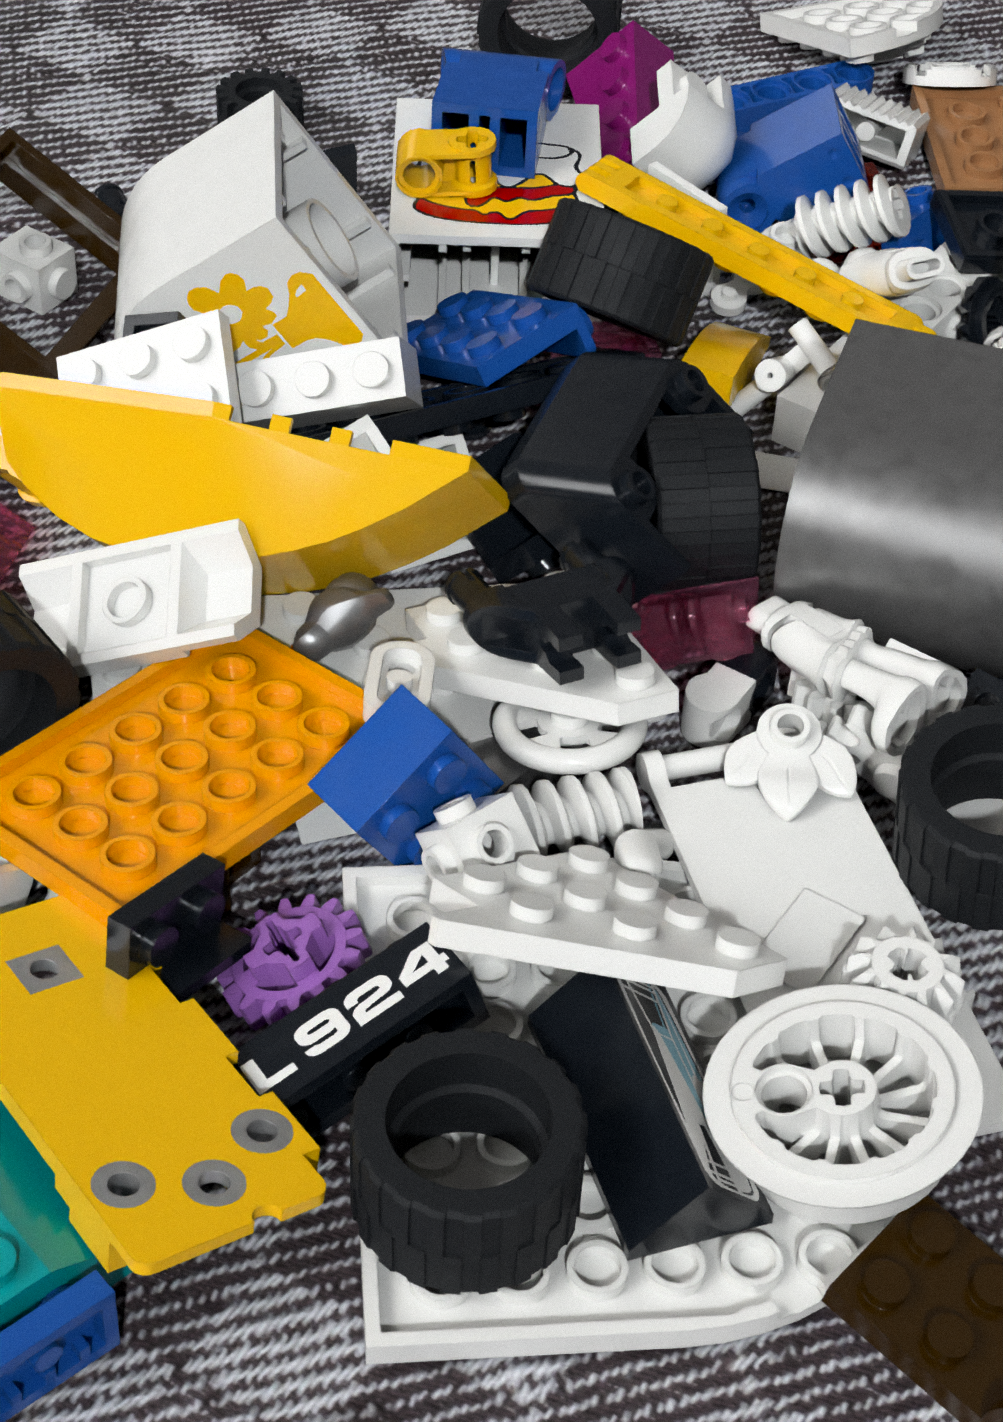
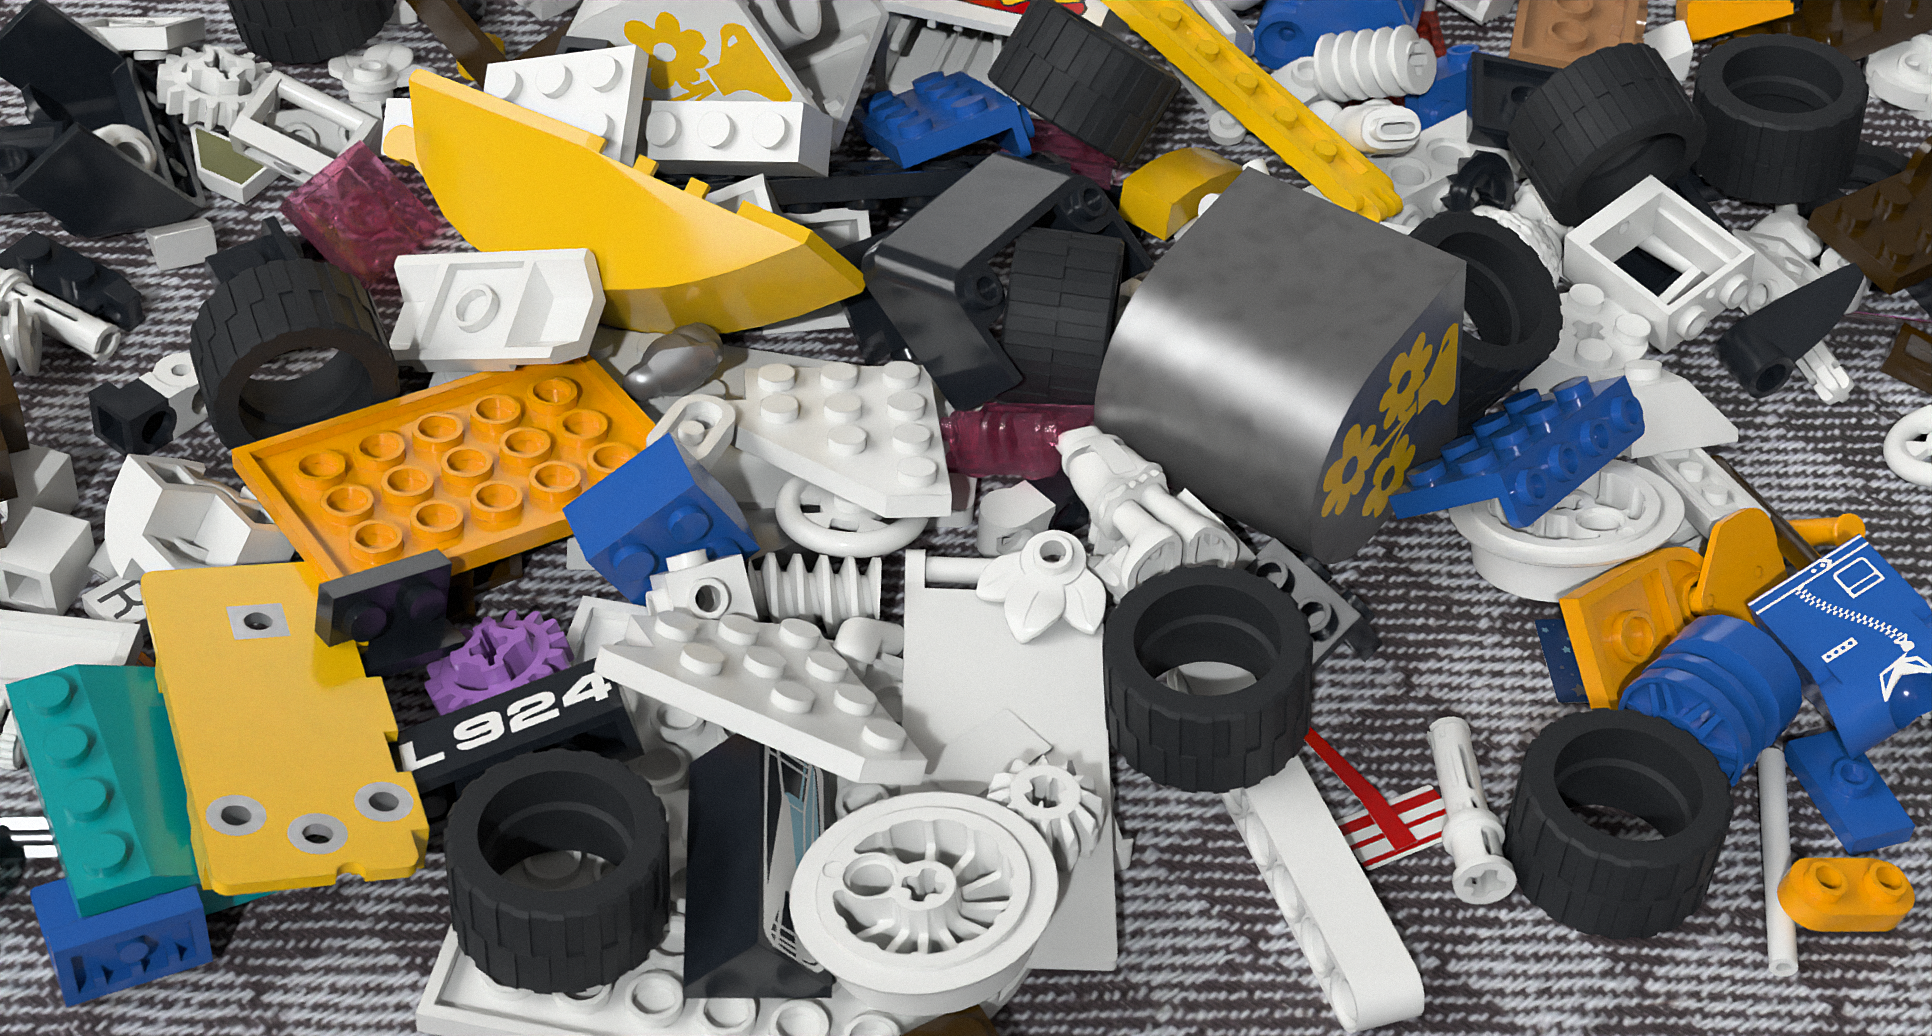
camera: 15 degrees right, 0 degrees up
(555, 614) = (865, 397): black connector -> none

